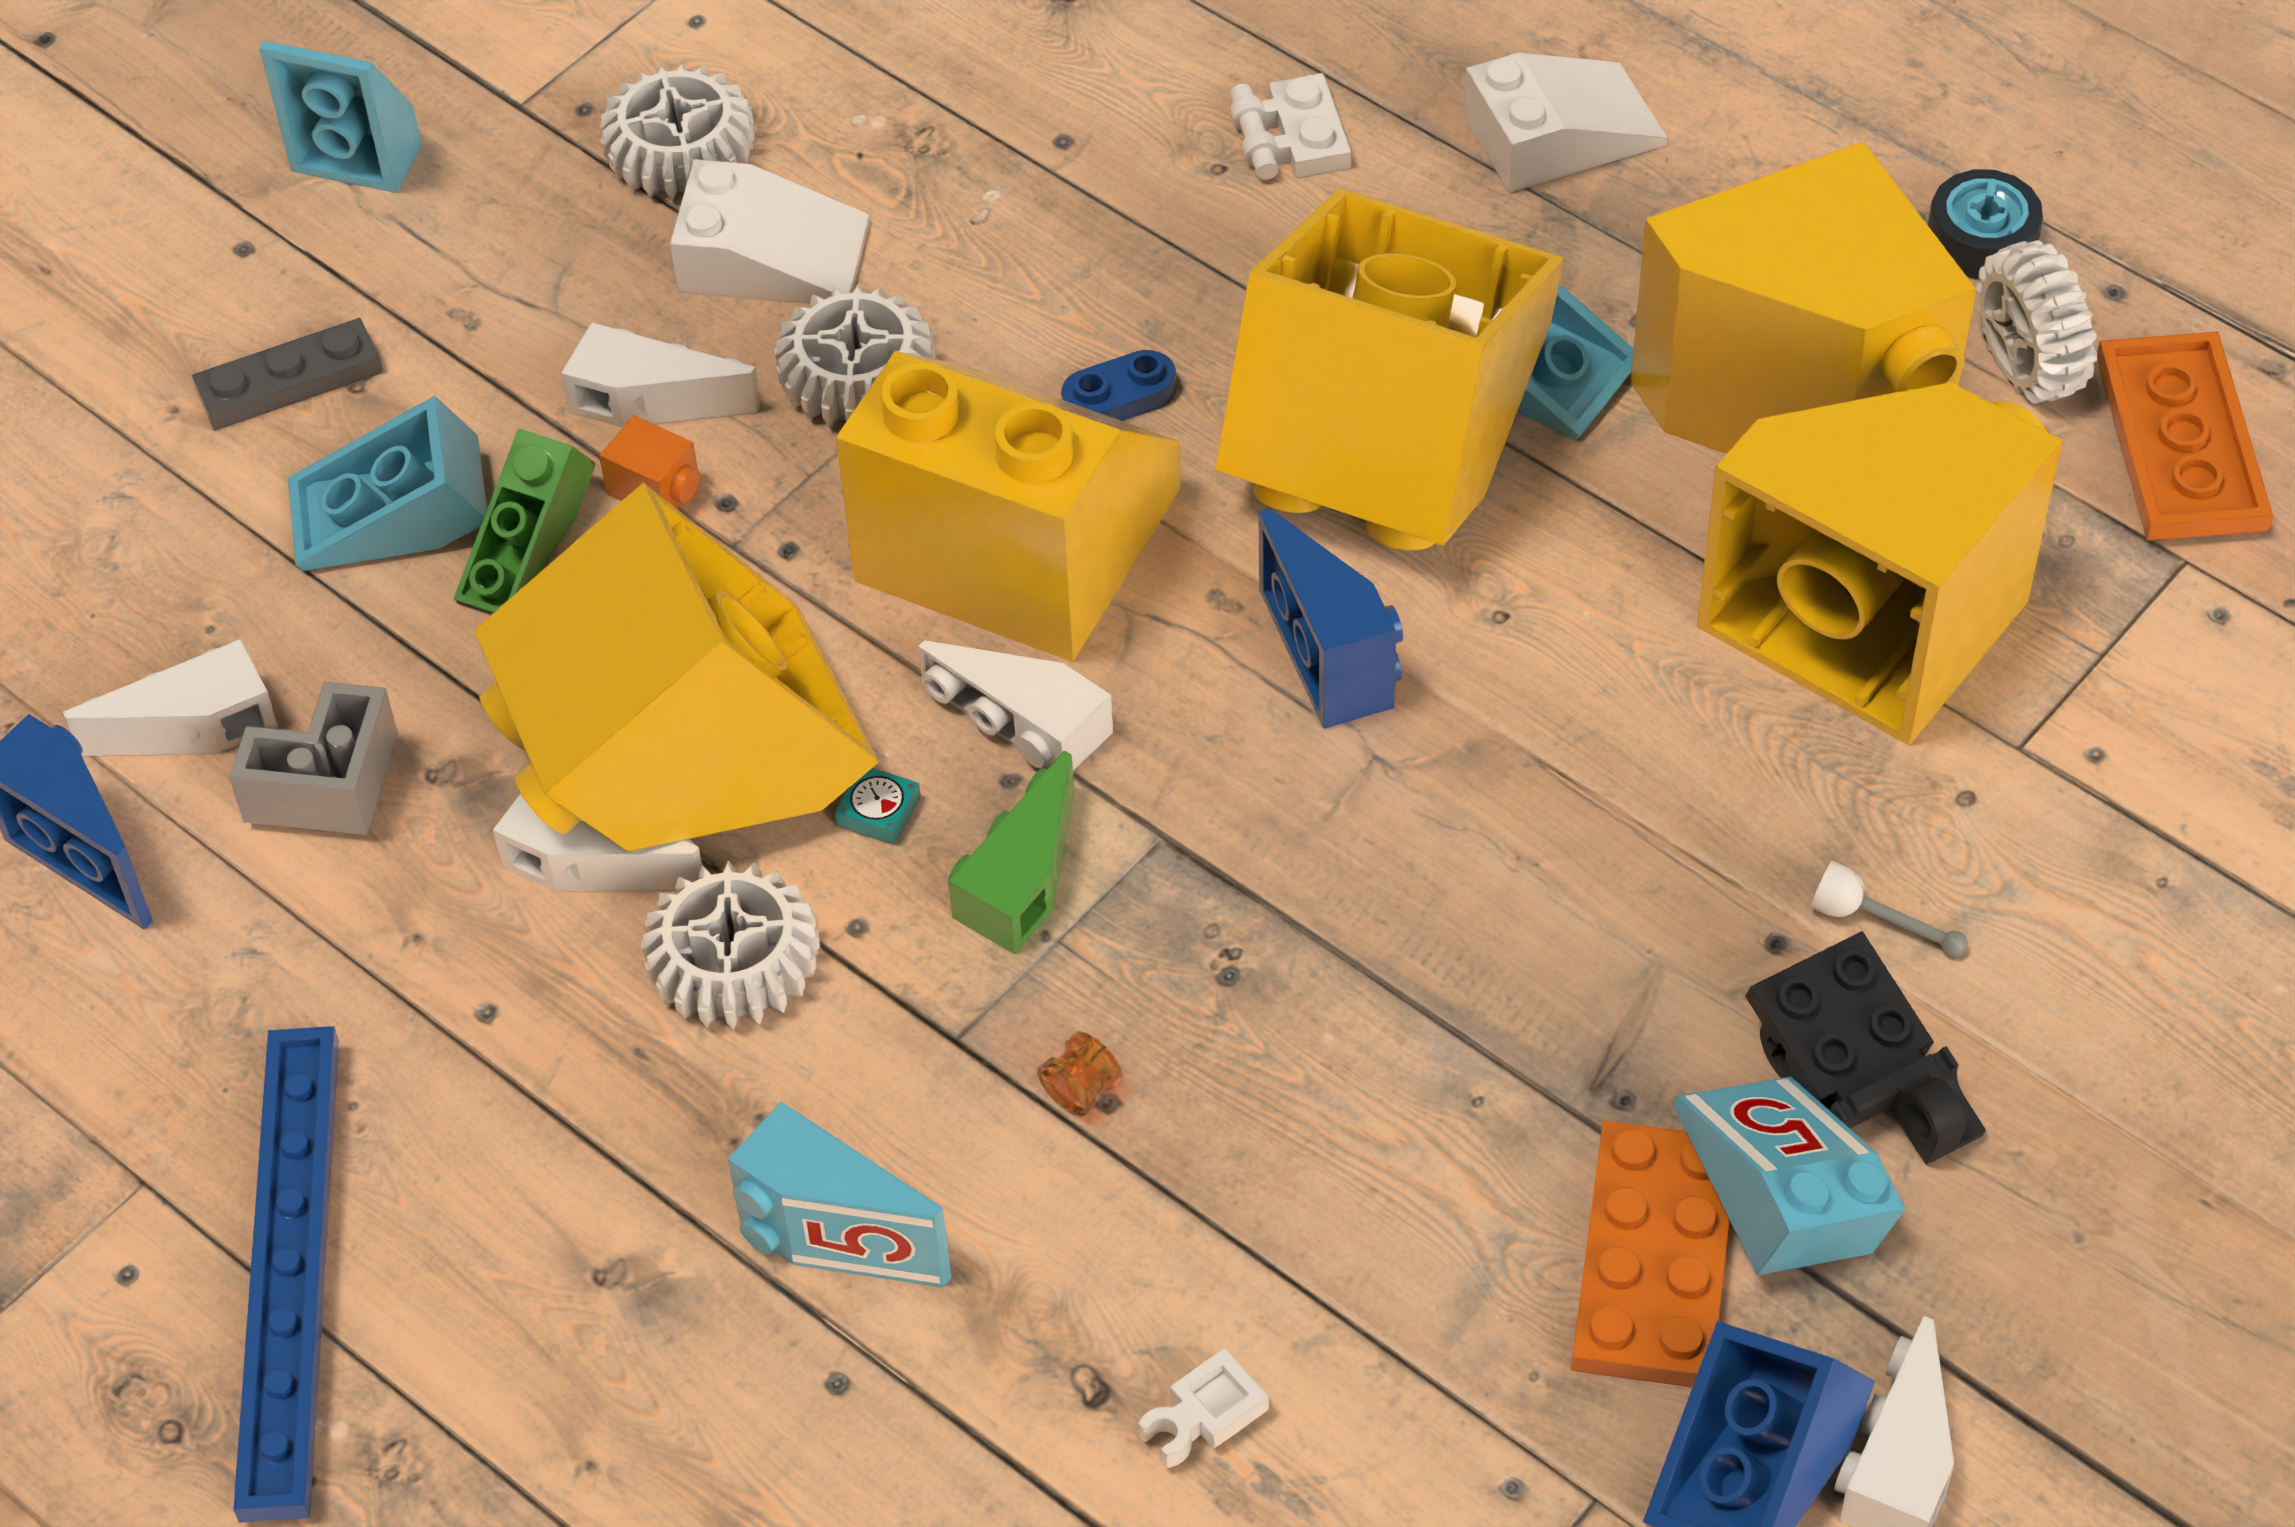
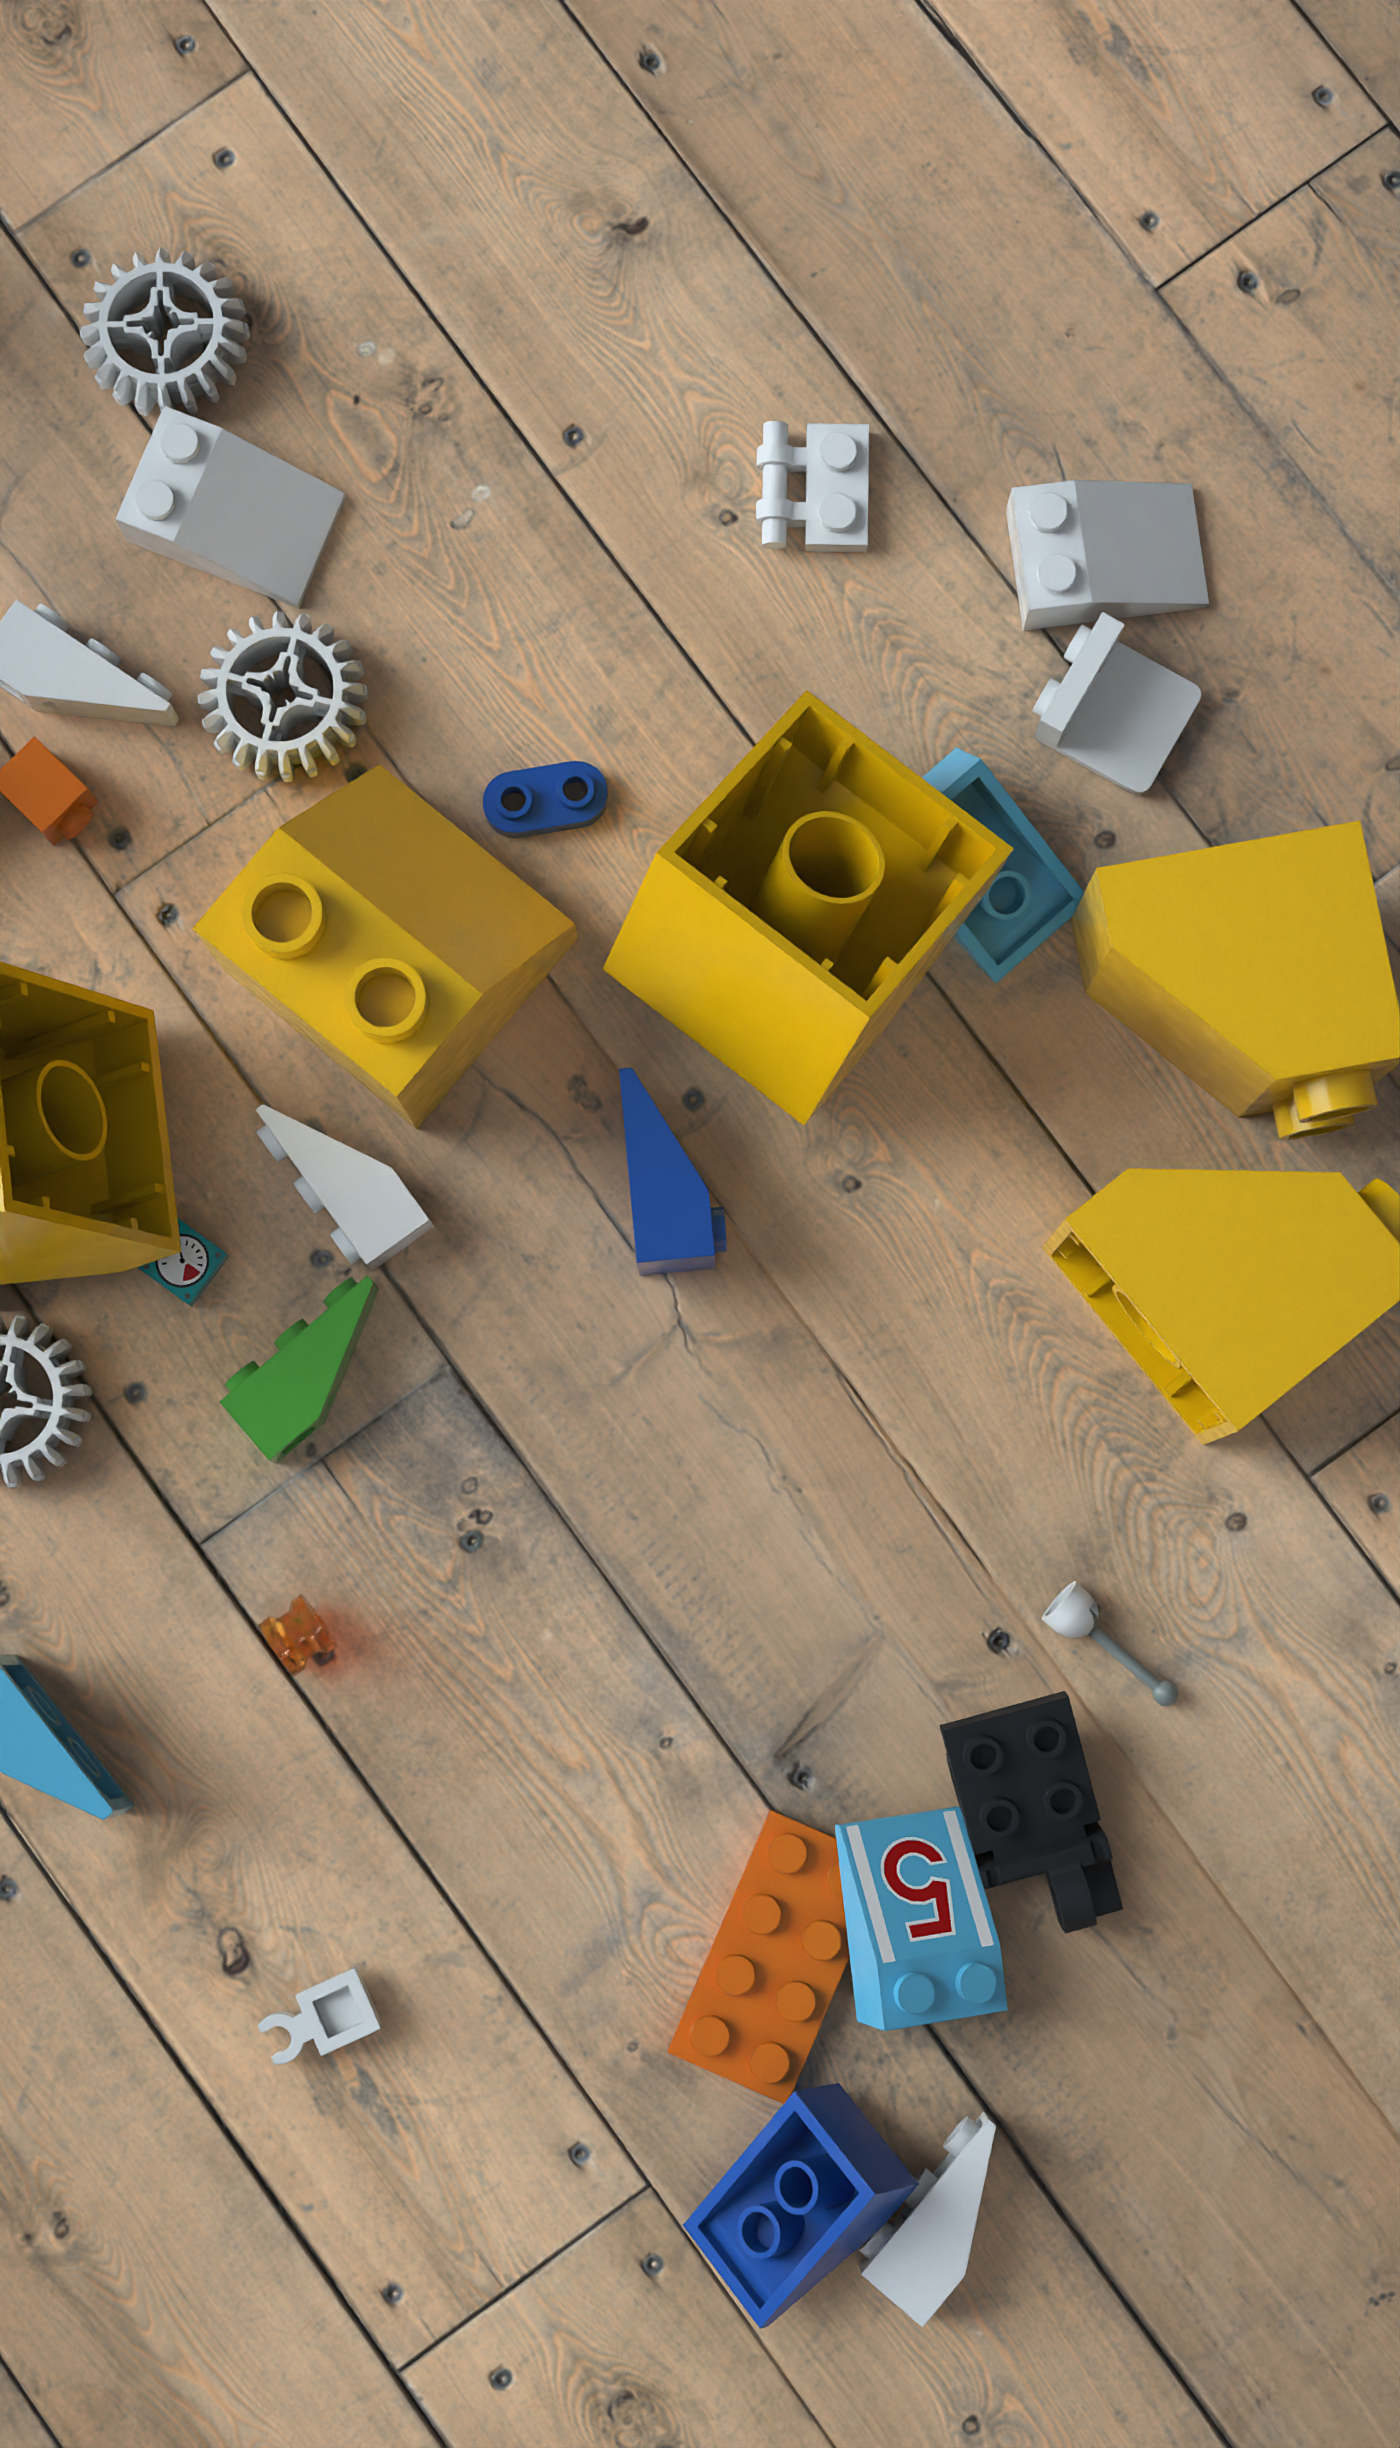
camera: 15 degrees right, 30 degrees up
(1597, 215) = (1114, 708): none -> white bracket

